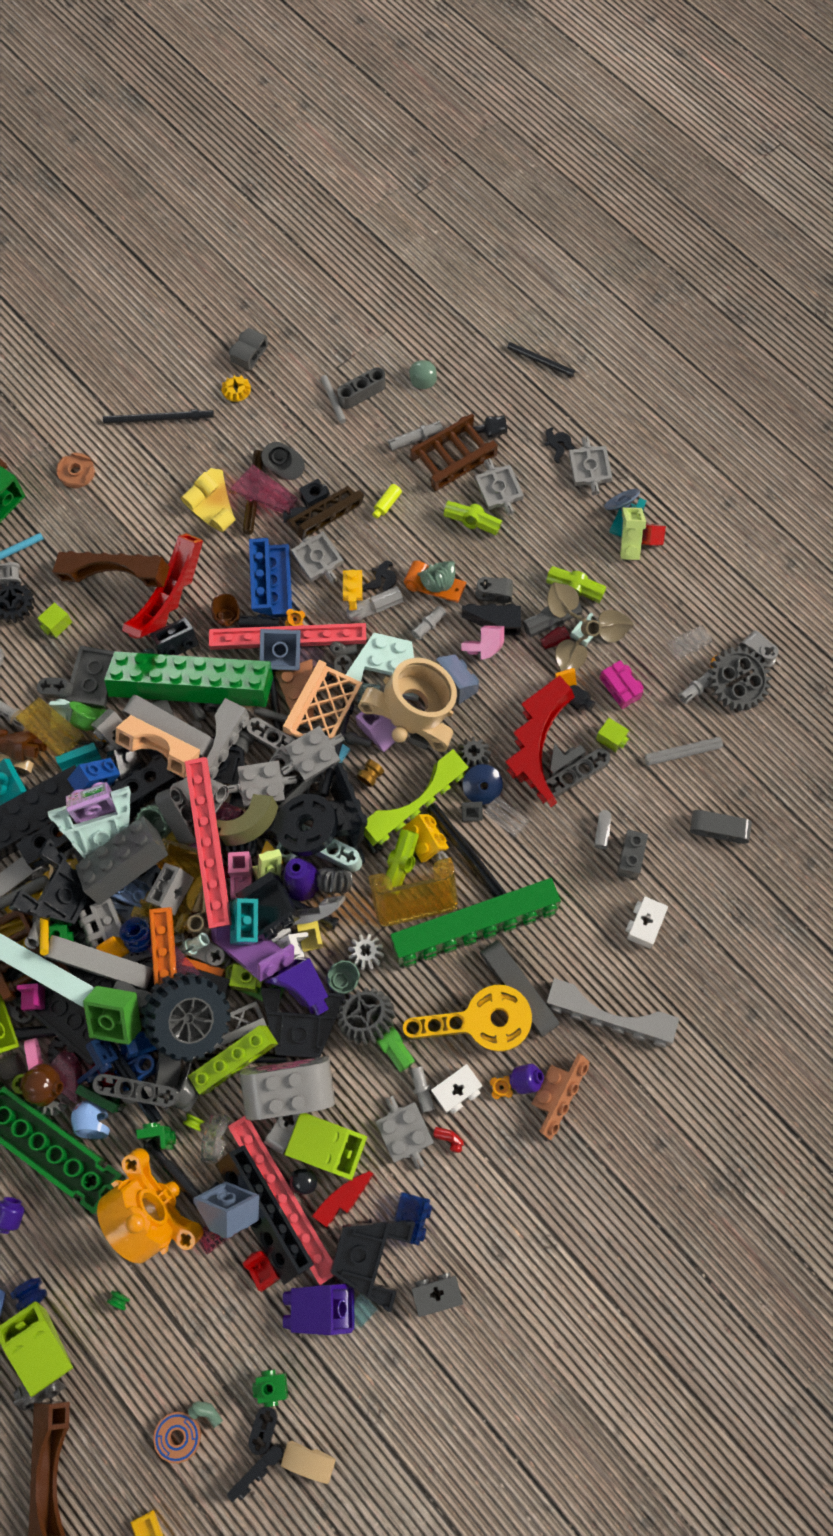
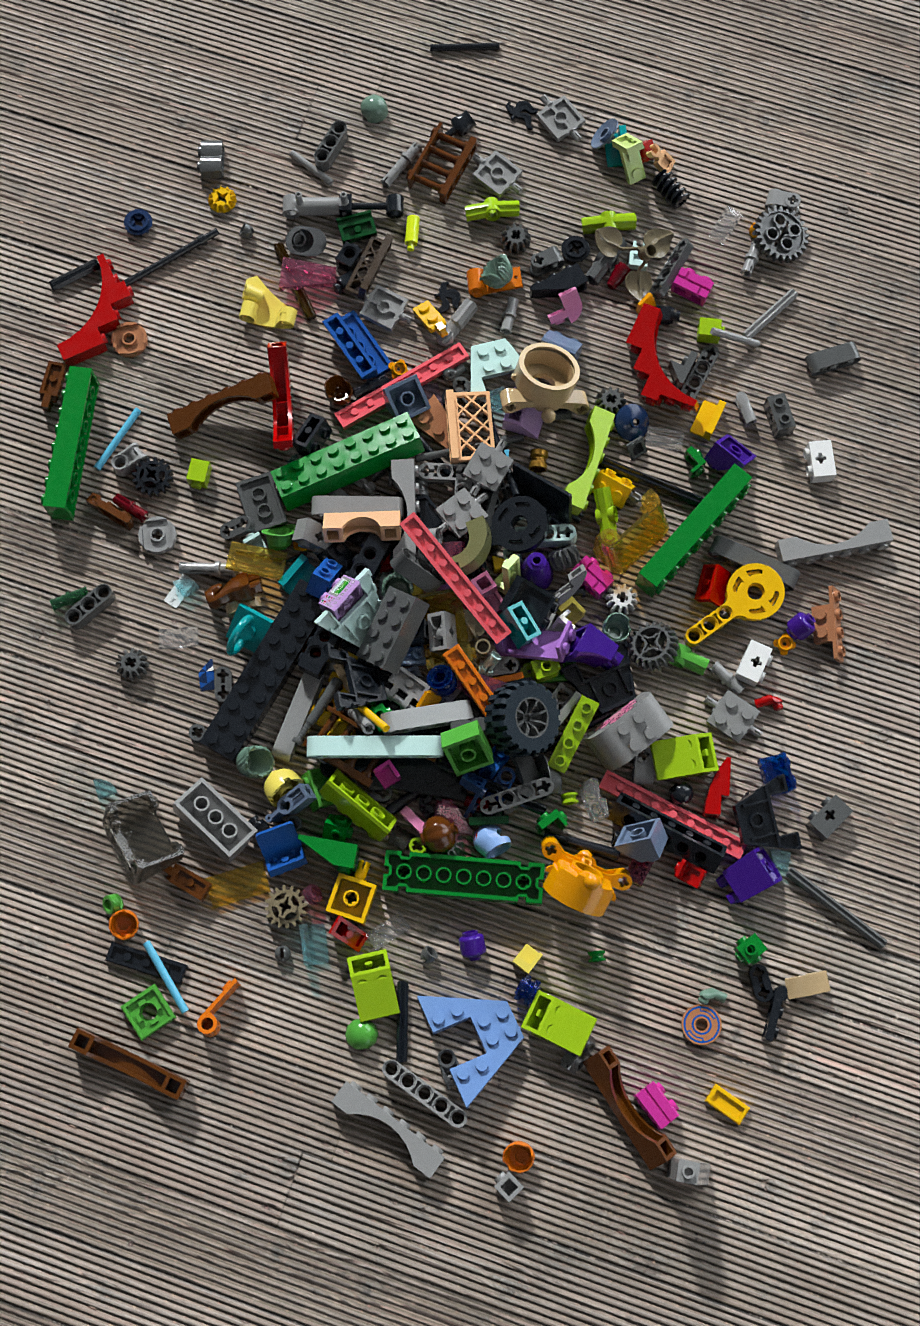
camera: 30 degrees left, 5 degrees up
(43, 451) = (91, 337): none -> red arch
(50, 1261) = (527, 959): none -> light yellow panel
(66, 390) = (74, 274): none -> black axle
(78, 1496) = (656, 1105): none -> dark pink brick
(142, 372) = (141, 216): none -> dark blue gear
(239, 427) = (246, 231): none -> dark grey hinge
(336, 444) = (296, 205): none -> light grey piece
(339, 471) = (356, 227): none -> dark green plate
(352, 916) = (596, 580): none -> dark pink brick
(388, 1398) = (836, 908): none -> dark grey axle
(464, 986) = (712, 584): none -> red panel
(478, 561) = (515, 239): none -> dark grey gear
(523, 852) = (696, 460): none -> green bracket
(537, 588) = (579, 243): none -> black gear
(559, 864) = (728, 452): none -> dark purple slope
(560, 820) = (707, 419): none -> yellow panel
(611, 656) = (671, 268): none -> dark grey beam
(632, 754) = (735, 337): none -> light grey bar
(655, 581) = (669, 189): none -> black piece
(664, 550) = (662, 158): none -> light nougat plate

